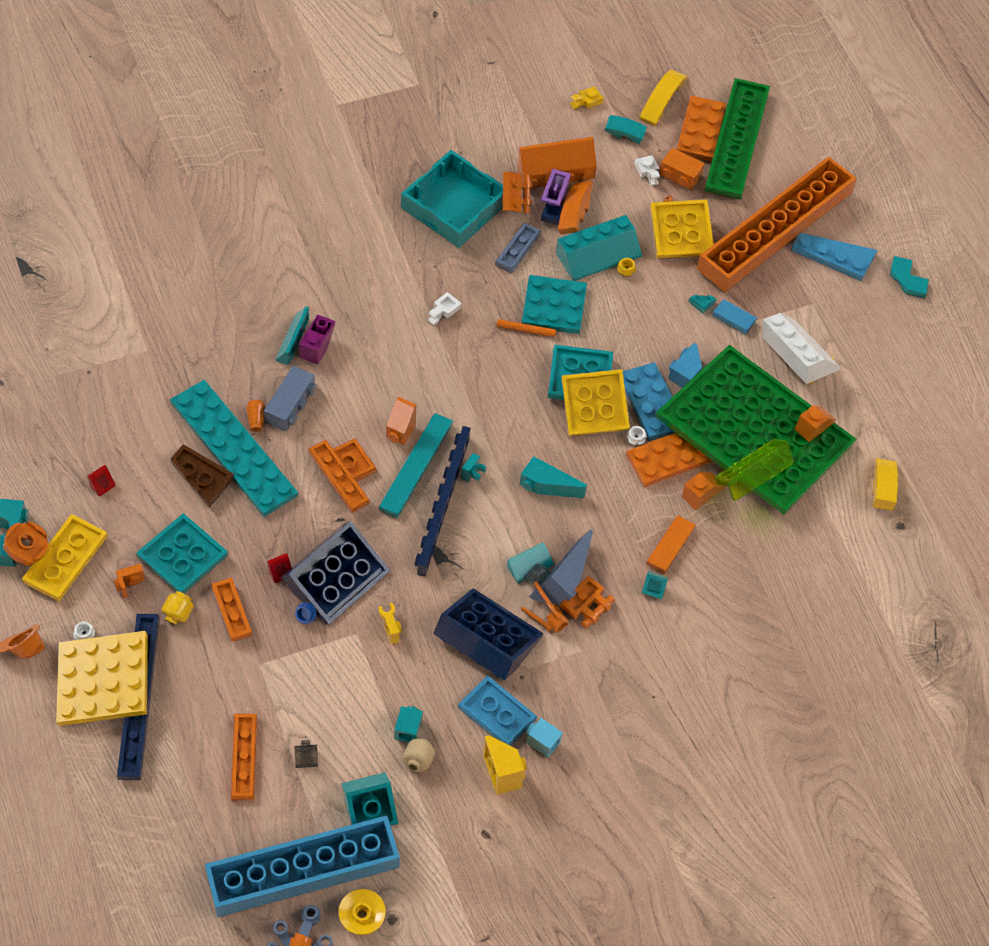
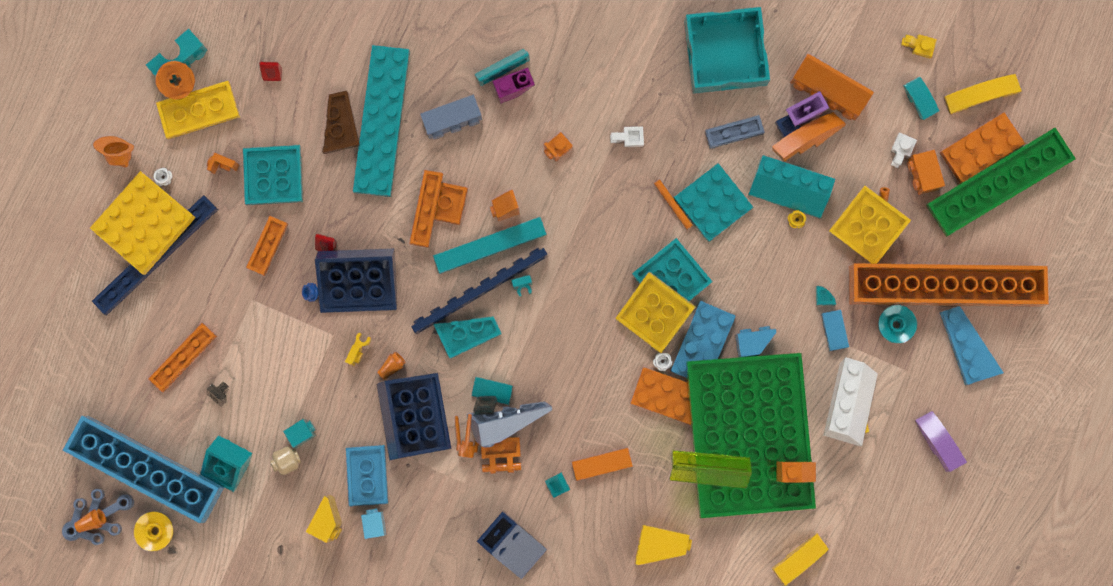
camera: 50 degrees right, 25 degrees up
(177, 608) = (233, 213): yellow head -> none
(255, 414) = (417, 107): orange cone -> none
(396, 357) = (557, 147): none -> orange bracket
(430, 611) = (391, 365): none -> orange cone
(467, 540) = (465, 335): none -> teal wing
(513, 192) = (769, 85): orange plate -> none
(548, 480) = (563, 338): teal slope -> none
(666, 656) = (511, 545): none -> slope
(701, 489) = (666, 443): orange slope -> none
(775, 270) = (906, 320): none -> teal dish
(776, 559) = (660, 544): none -> yellow slope
(888, 325) = (940, 442): none -> medium lavender slope
(910, 284) = (998, 422): teal tile -> none

